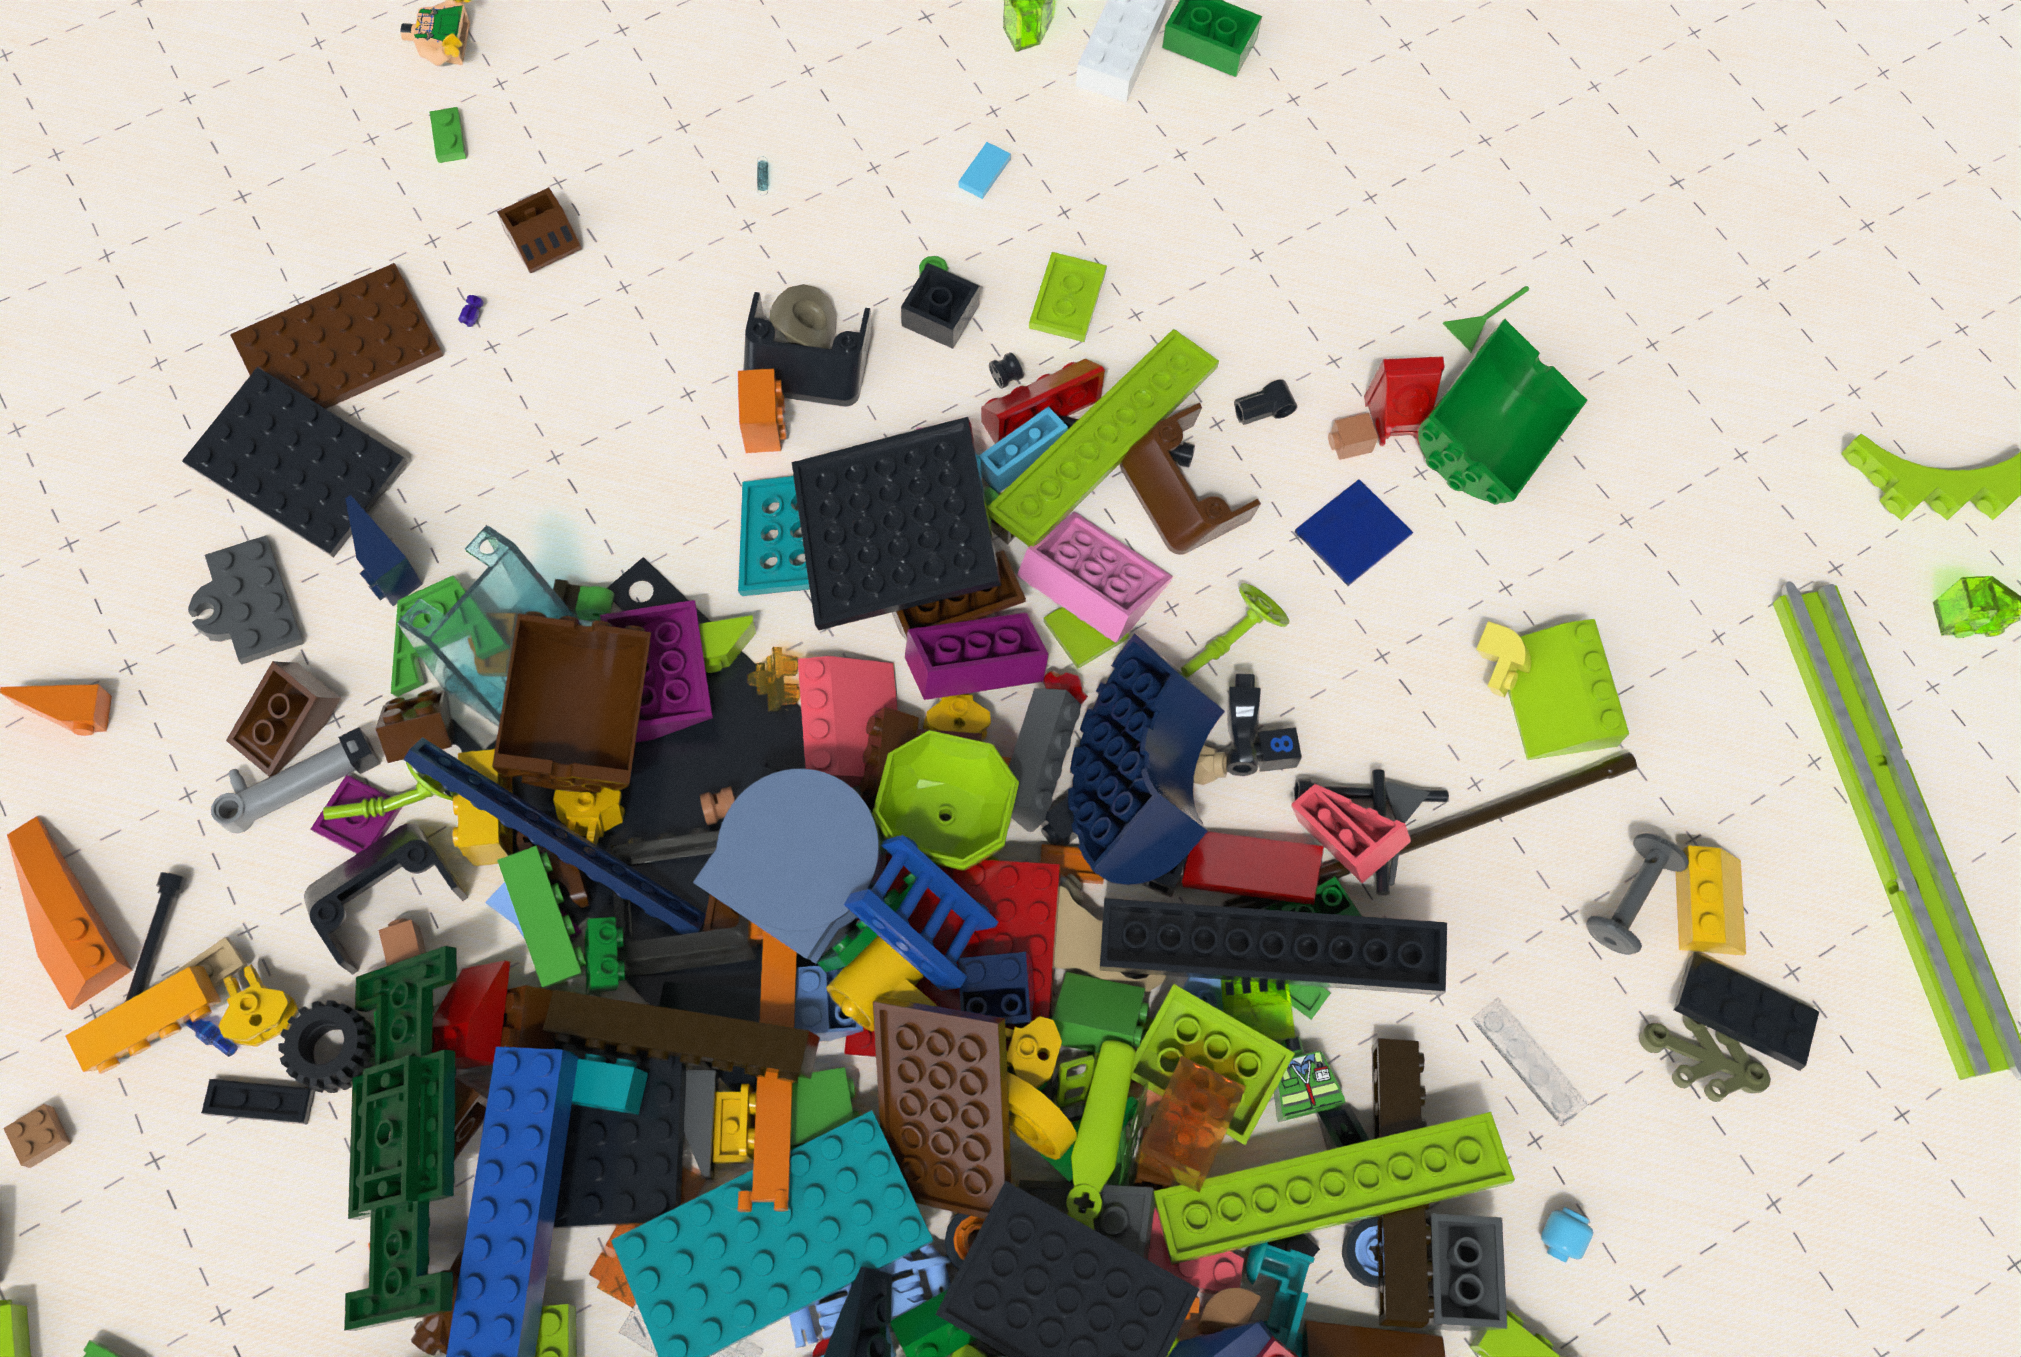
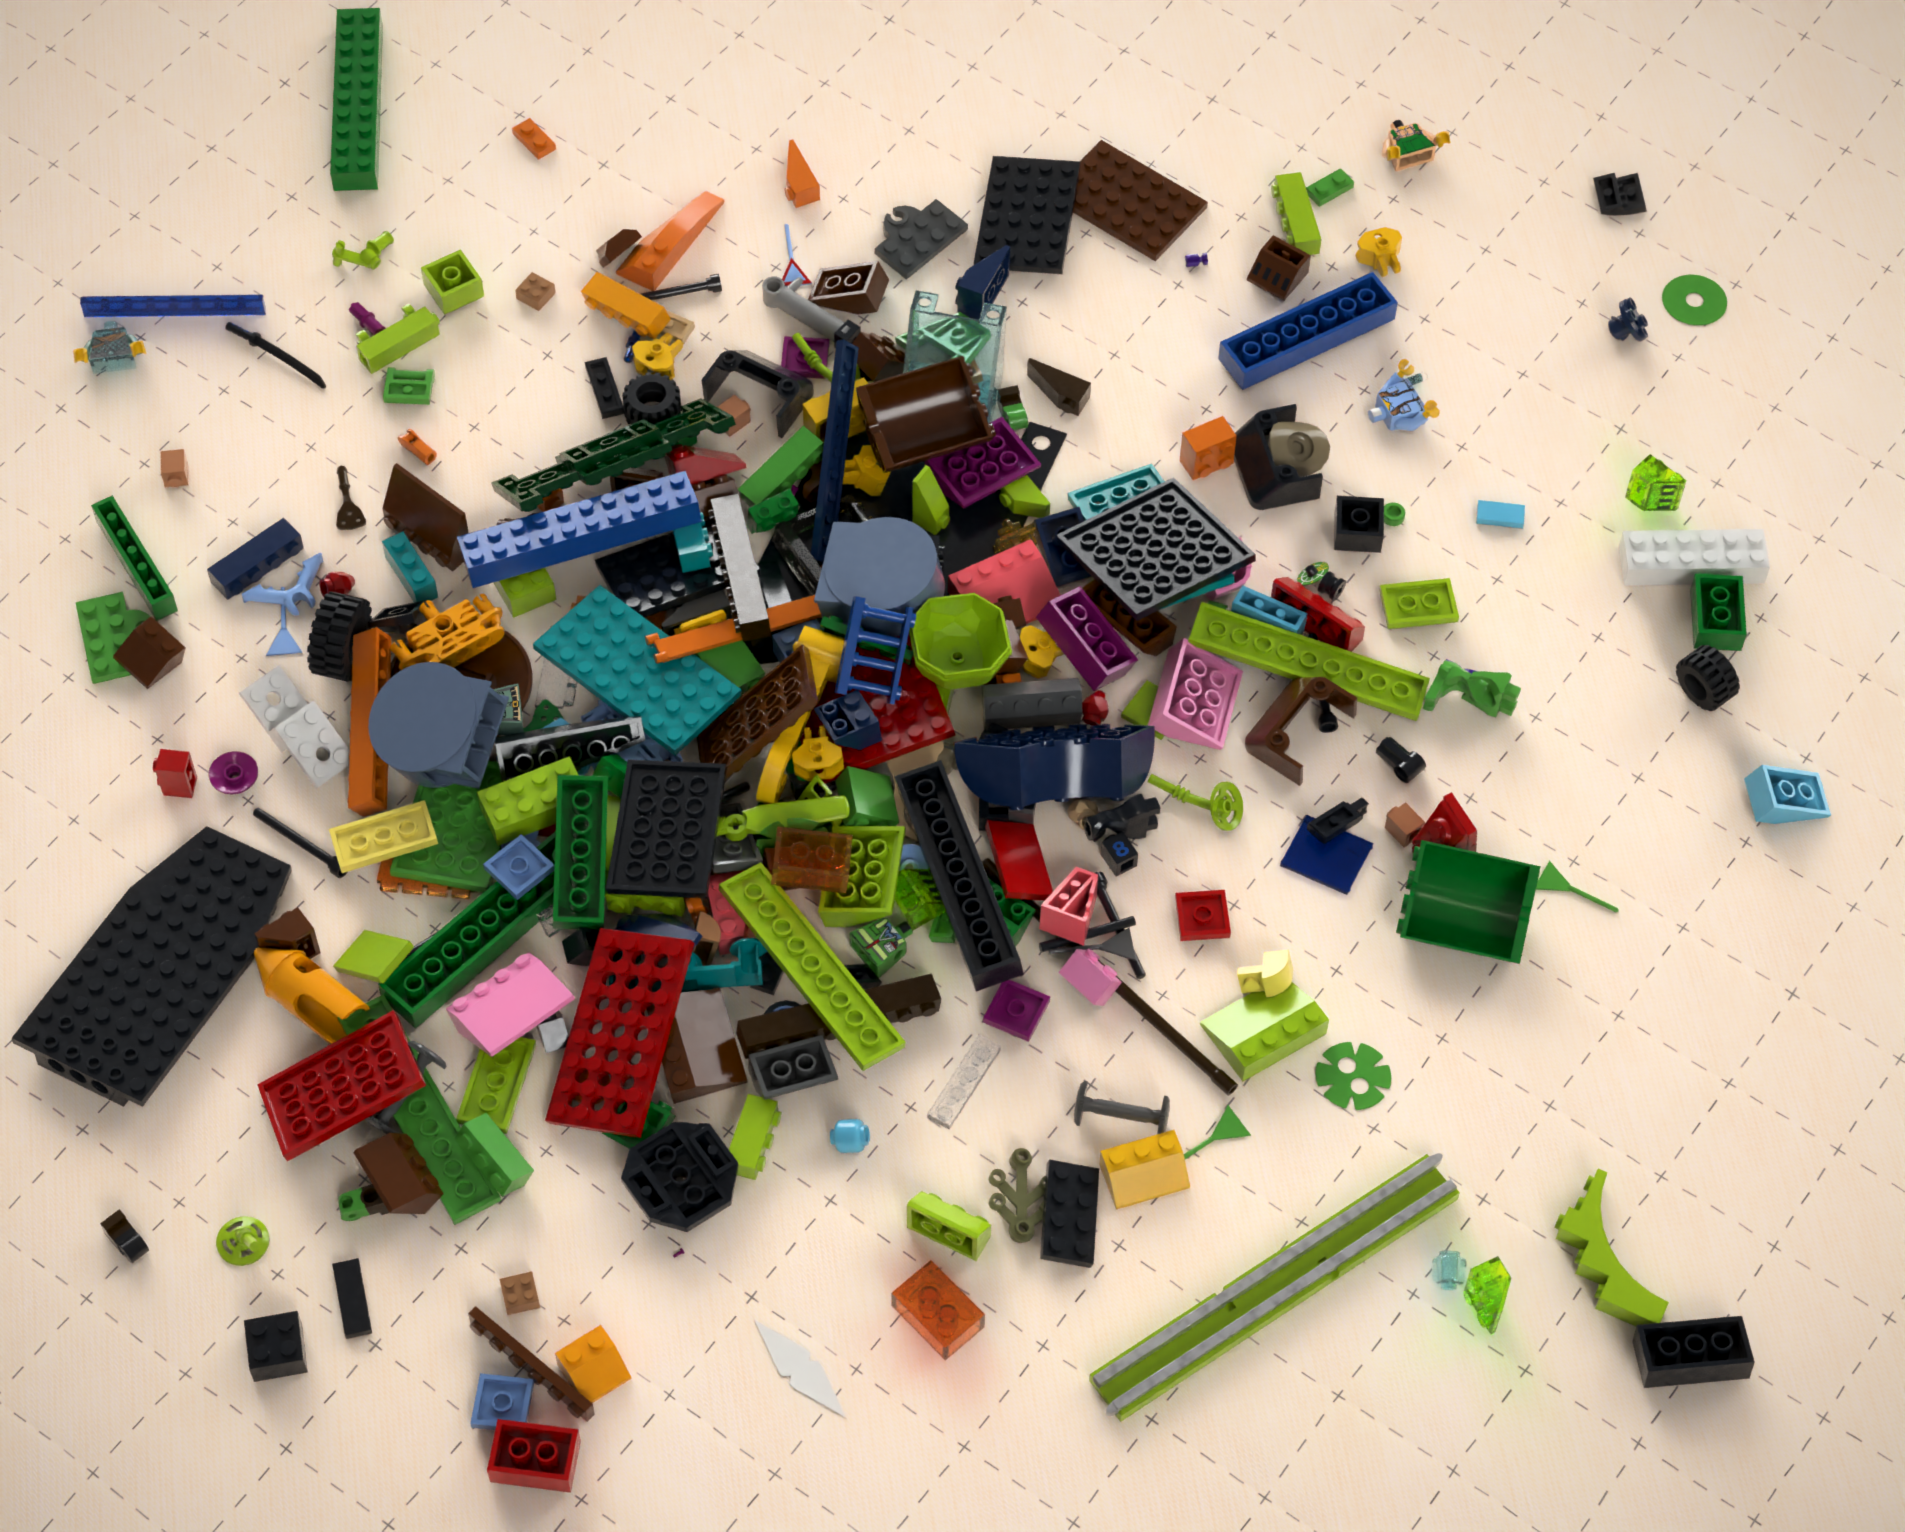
camera: 70 degrees right, 10 degrees down
(30, 992) = (617, 245): none -> reddish brown slope
(212, 777) = (793, 270): none -> light blue piece
(467, 180) = (1296, 212): none -> lime brick
(575, 121) = (1380, 251): none -> yellow hinge
(578, 534) = (1060, 387): none -> dark brown slope
(645, 242) = (1307, 330): none -> blue brick
(686, 755) = (929, 503): none -> lime slope
(793, 628) = (1059, 562): none -> dark blue slope
(796, 196) = (1400, 404): none -> torso
(979, 382) = (1313, 573): none -> piece
(1207, 288) = (1483, 689): none -> bright green hips
(1297, 73) = (1707, 678): none -> black tyre
(1324, 500) = (1337, 820): none -> black hinge
(1392, 694) = (1202, 915): none -> red plate
(1442, 853) = (1090, 976): none -> bright pink brick
(1453, 80) = (1786, 795): none -> medium azure slope
(1465, 958) = (1016, 1009): none -> magenta plate
(1638, 650) = (1341, 1090): none -> bright green piece
(1676, 787) = (1227, 1128): none -> bright green piece
(1731, 1160) = (948, 1224): none -> lime slope
(1842, 1223) = (938, 1310): none -> clear orange brick
(1926, 637) = (1449, 1269): none -> clear light blue head

